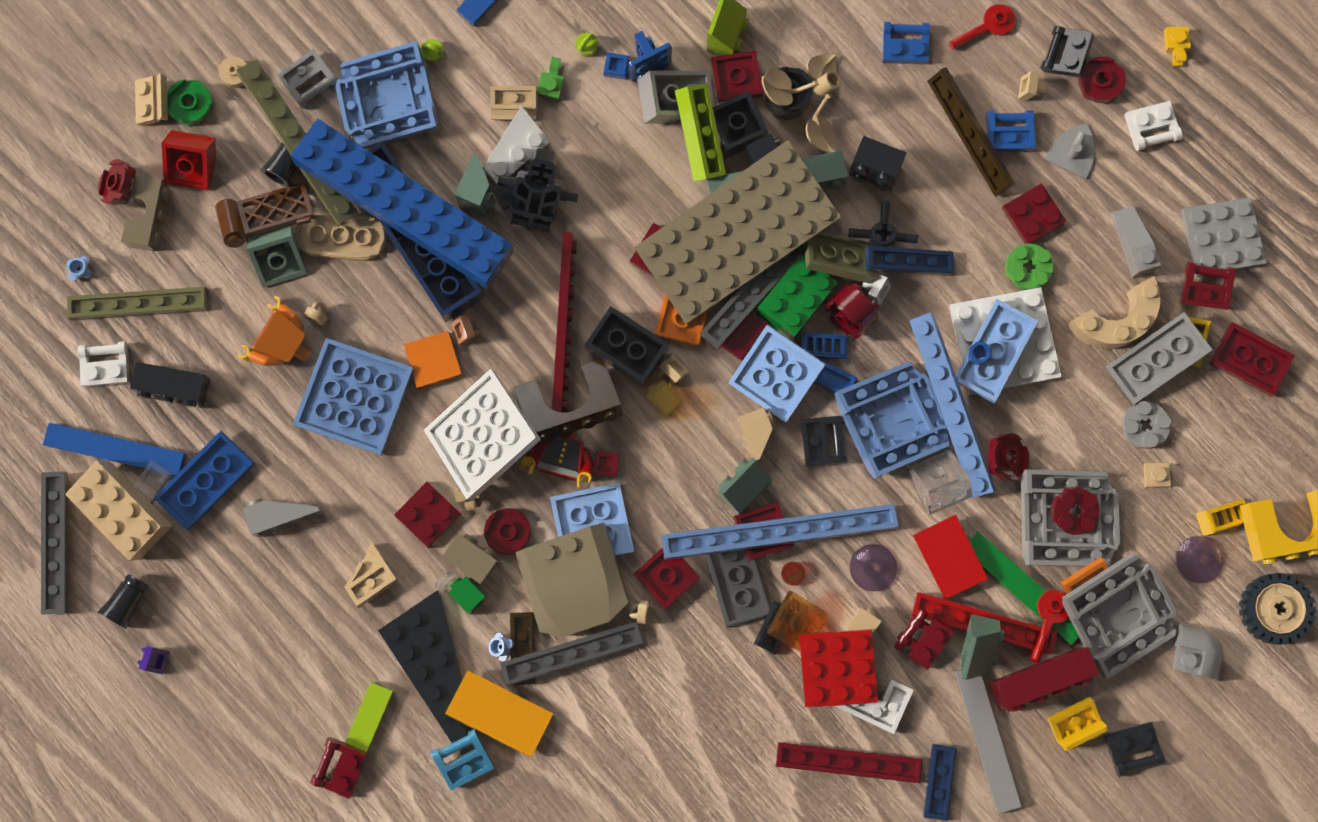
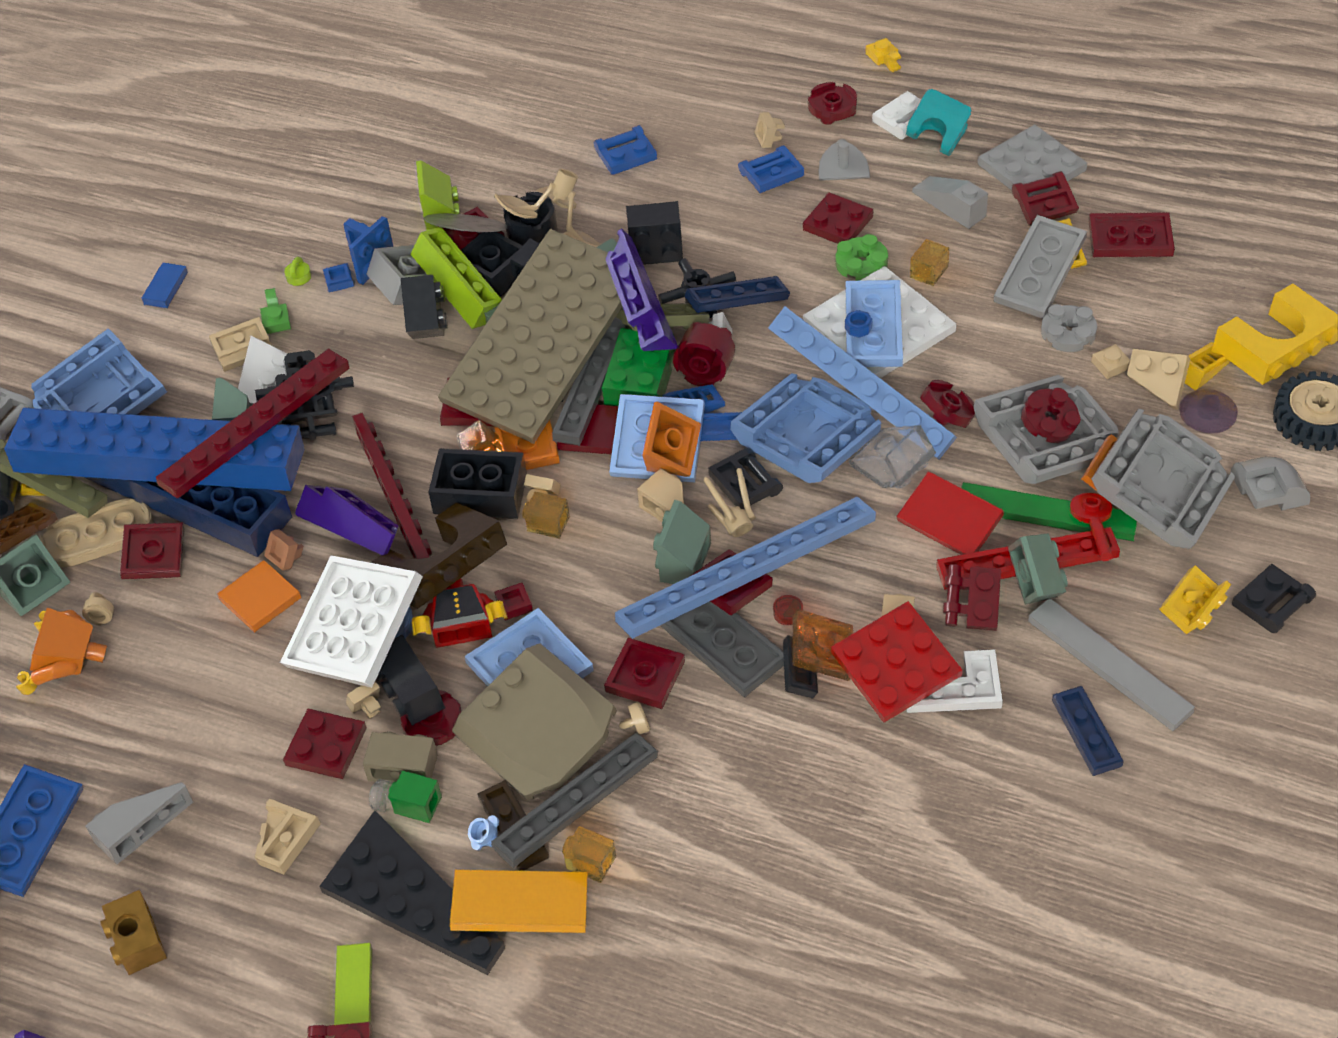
camera: 25 degrees left, 30 degrees down
(252, 616) = (144, 945): none -> pearl gold brick
(353, 396) = (178, 667): medium blue plate -> none
(373, 278) = (152, 550): none -> dark red tile
(432, 50) = (132, 339): lime tile -> none
(466, 766) = (507, 980): dark azure plate -> none
(479, 229) = (252, 423): none -> dark red plate
(501, 505) = (409, 683): none -> black brick
(522, 328) = (347, 516): none -> dark purple wedge
(559, 701) = (589, 853): none -> clear yellow brick
(645, 310) = (479, 438): none -> clear orange brick
(660, 153) = (422, 306): none -> black brick
(732, 78) = (465, 222): none -> flat silver sticker
(782, 391) = (670, 441): none -> orange slope
(796, 479) = (736, 519): none -> tan plant
(823, 245) = (638, 296): none -> dark purple wedge
(849, 762) = (970, 760): dark red tile -> none
(864, 576) = (873, 576): clear purple dish -> none
(971, 132) = (733, 183): dark brown tile -> none
(996, 20) = (700, 103): red piece -> none
(1043, 678) = (1126, 568): dark red brick -> none
(1074, 53) = (793, 93): plate -> none
(1076, 304) = (929, 262): none -> clear yellow brick
(1112, 334) = (981, 267): tan brick -> none
(1180, 157) = (943, 115): none -> teal piece
(1182, 512) = (1160, 374): none -> tan wing

